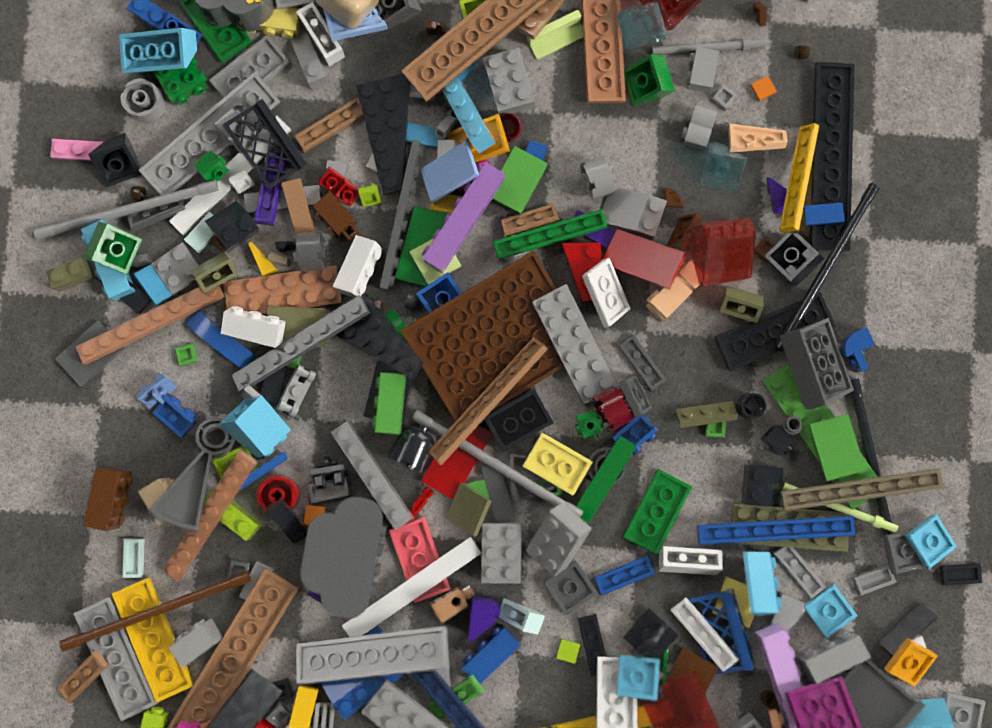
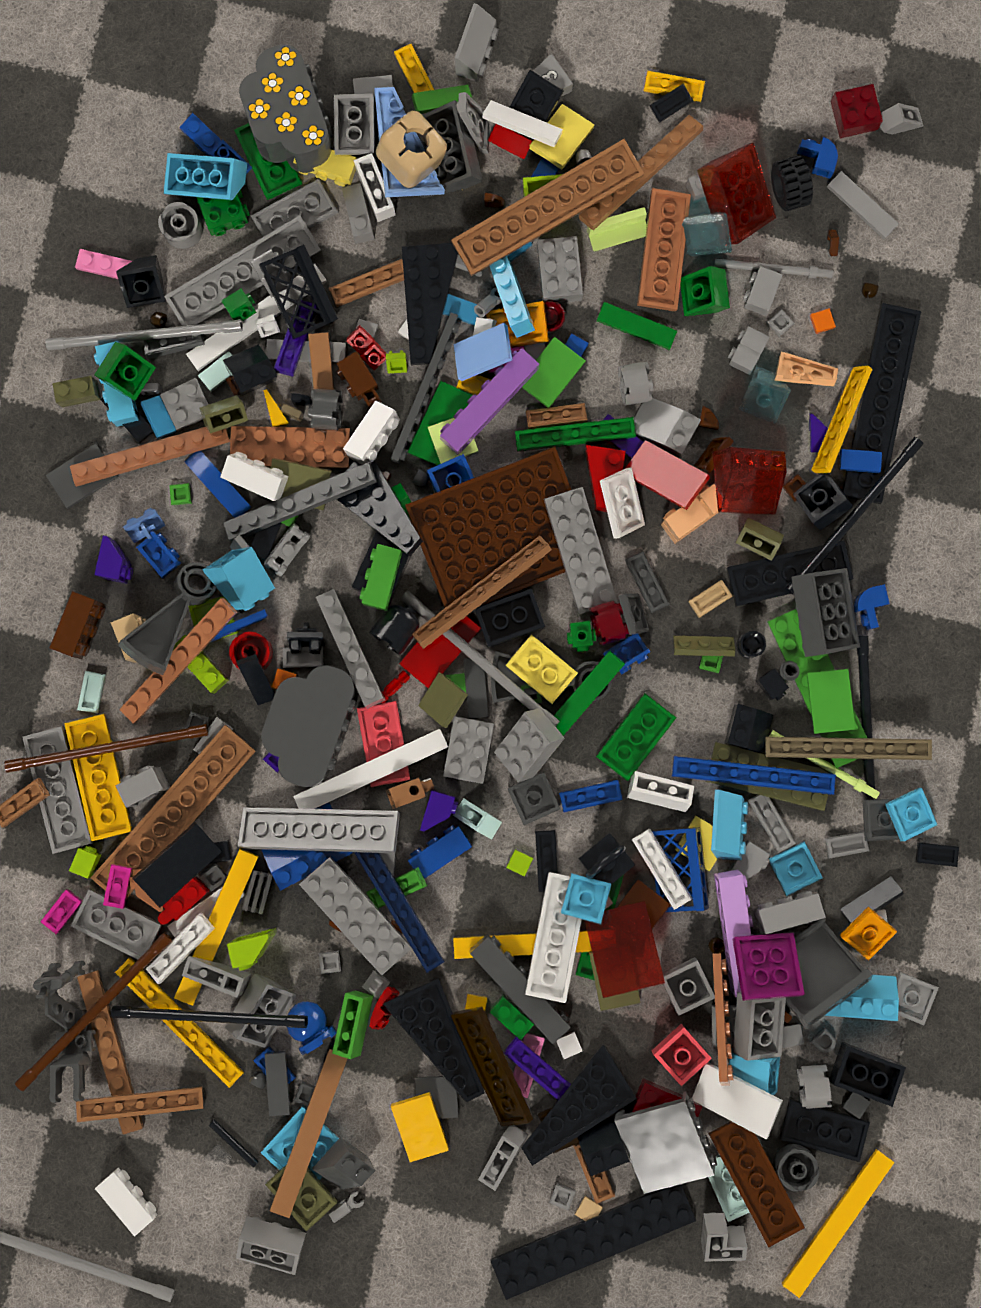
camera: 10 degrees right, 0 degrees up
(132, 431) = (112, 562): none -> dark purple slope
(590, 122) = (636, 326): none -> green tile
(704, 368) = (710, 598): none -> tan tile

